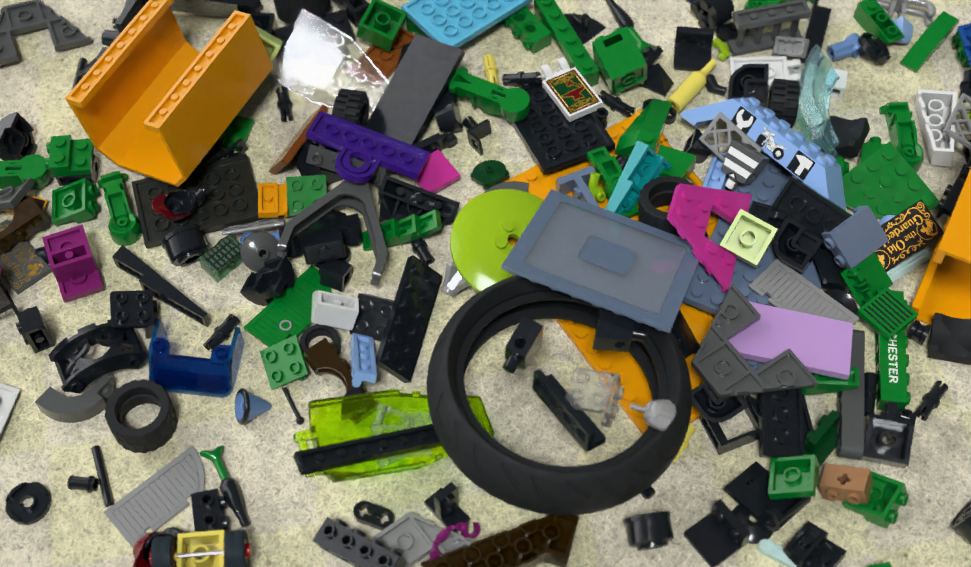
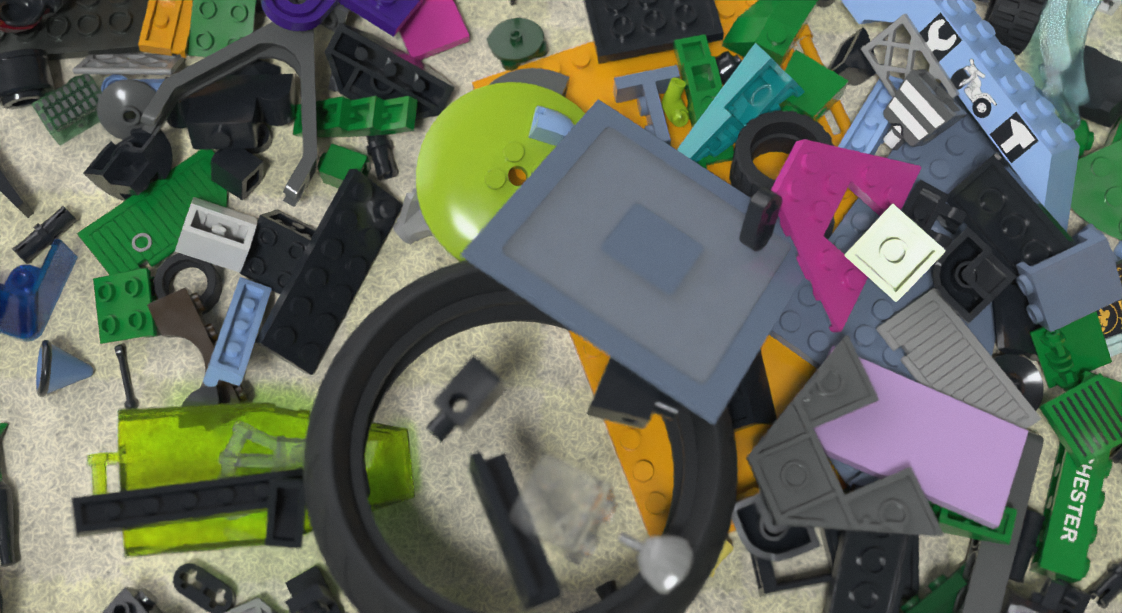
camera: 10 degrees right, 15 degrees up
(397, 260) = (337, 162): none -> green brick
(423, 443) = (286, 513): none -> black slope
(526, 208) = (549, 126): none -> light blue brick
(666, 230) = (760, 219): none -> black beam

